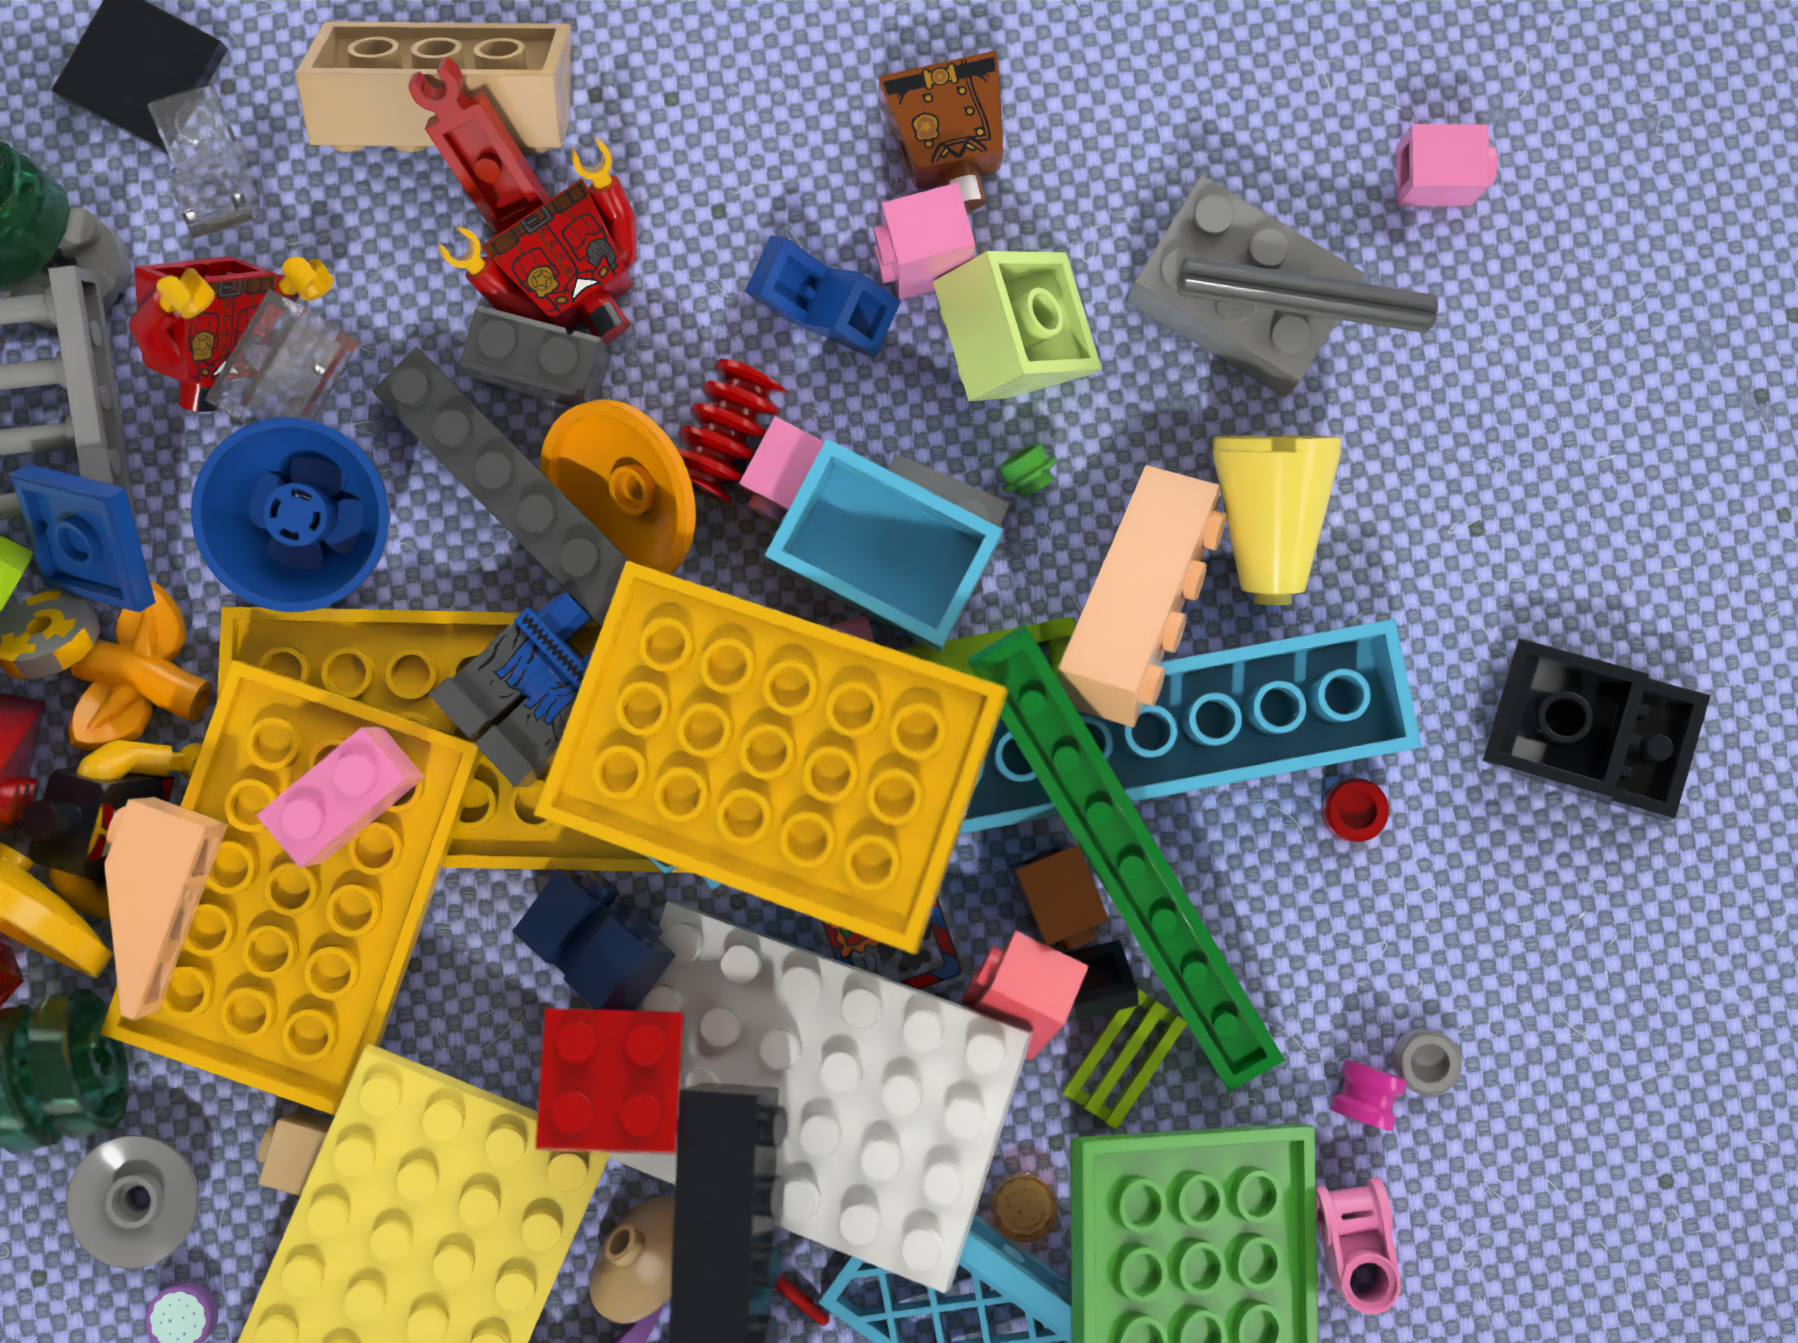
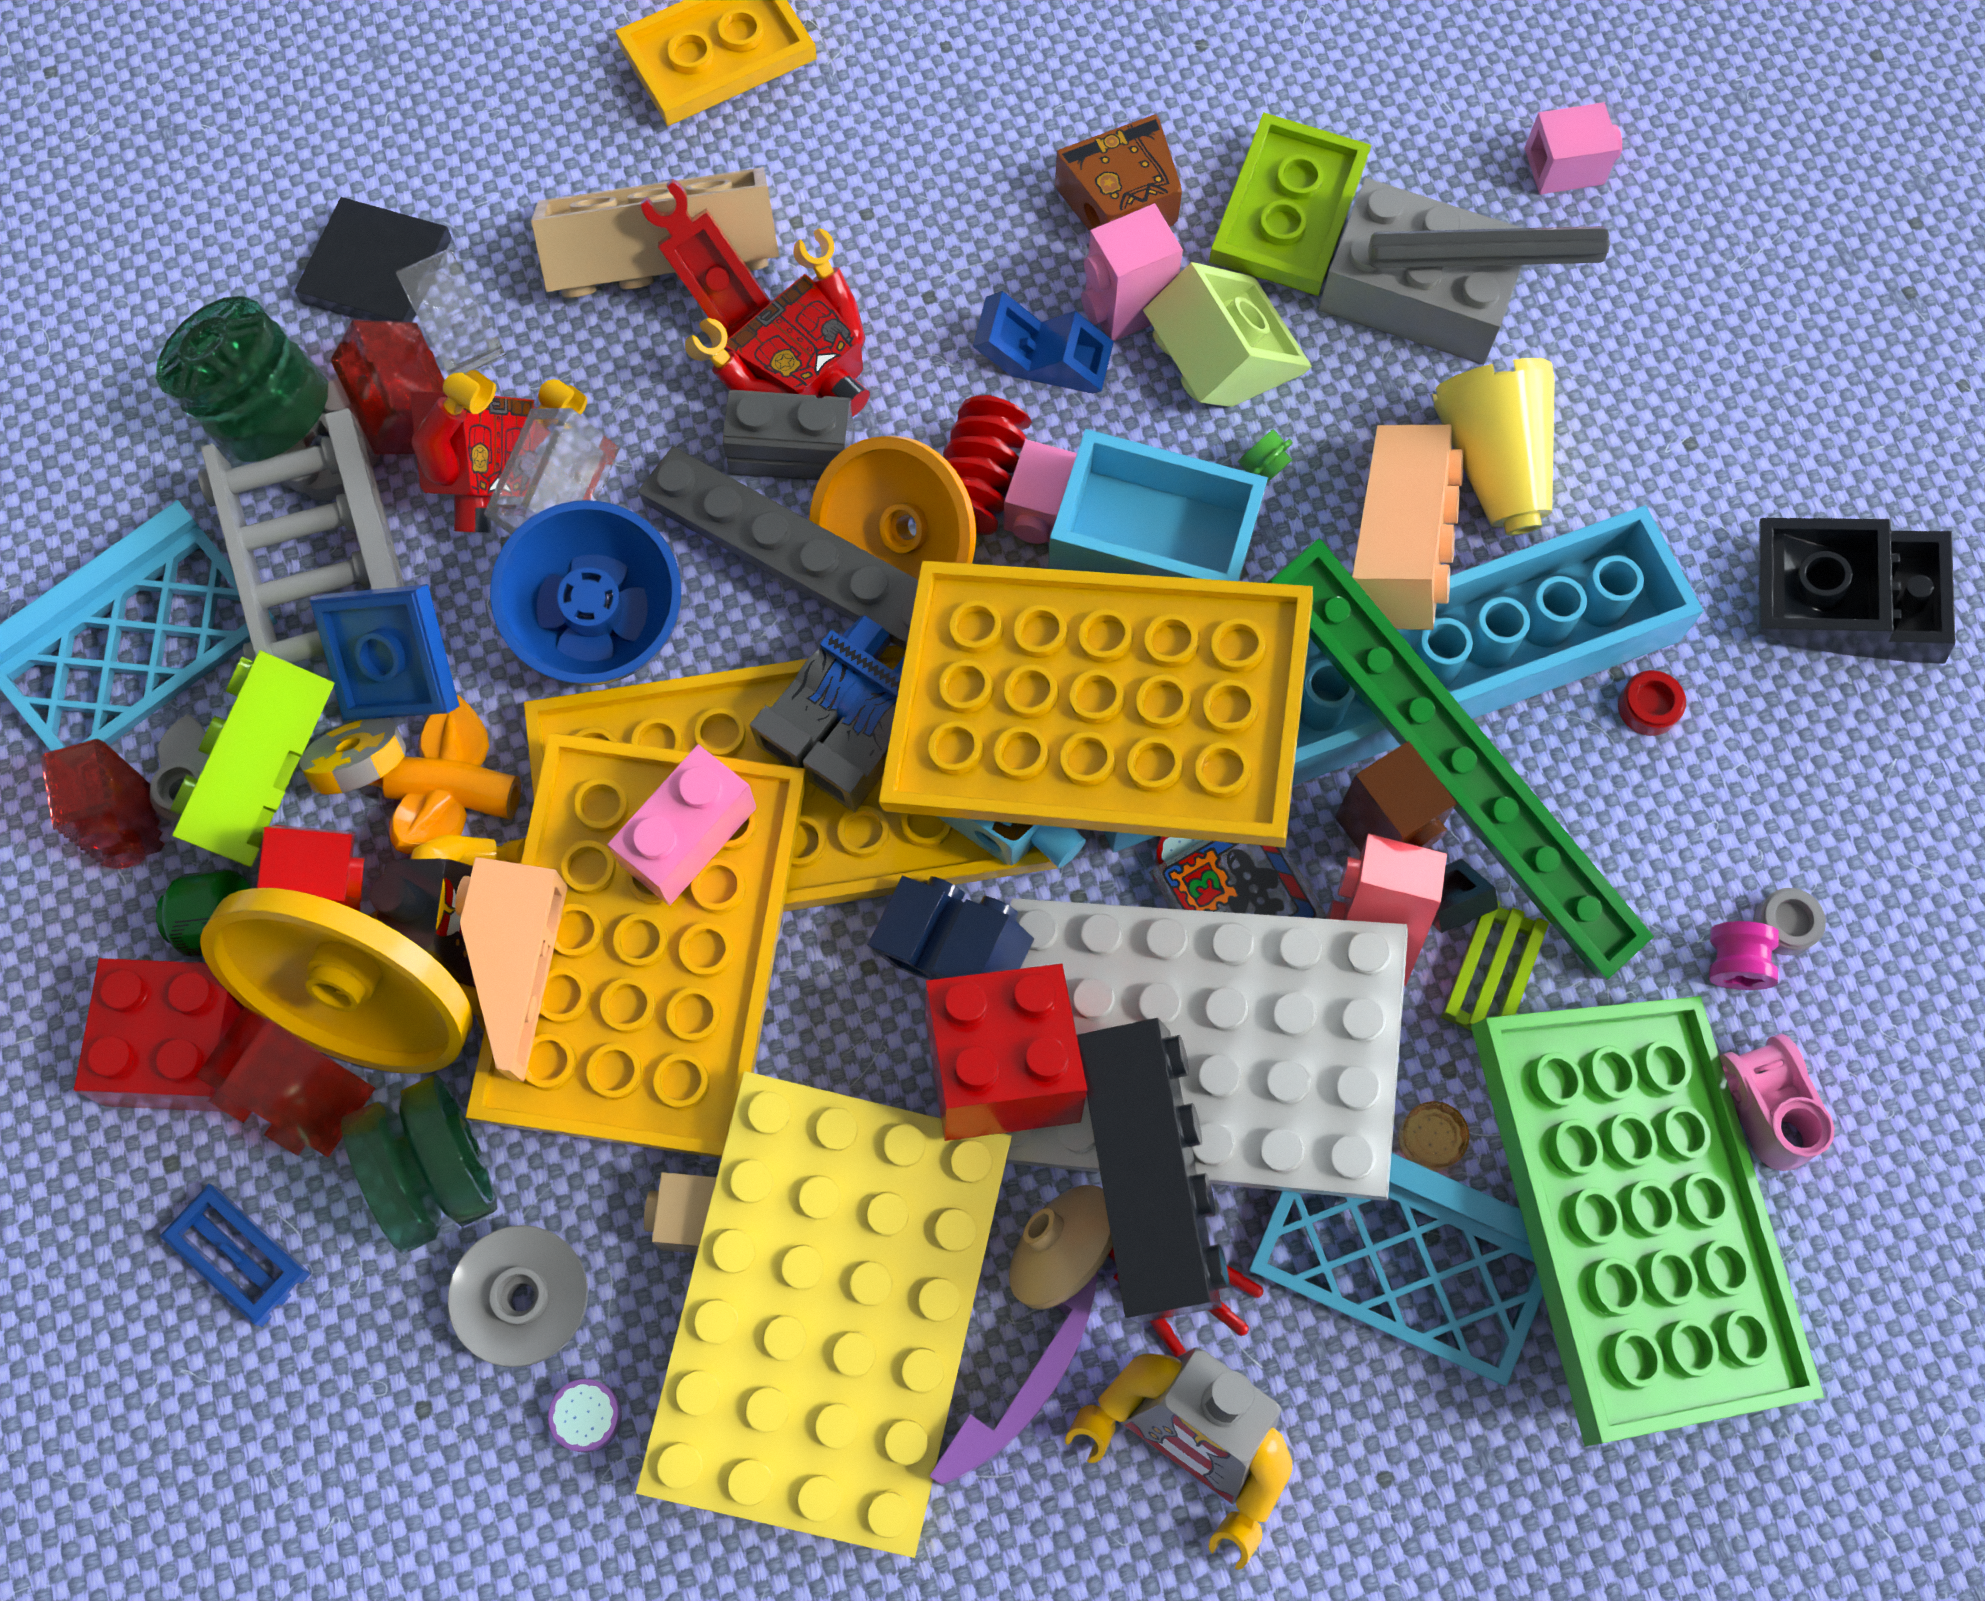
camera: 10 degrees left, 15 degrees down
(131, 222) = (378, 371): none -> clear red brick
(1122, 175) = (1290, 204): none -> lime plate

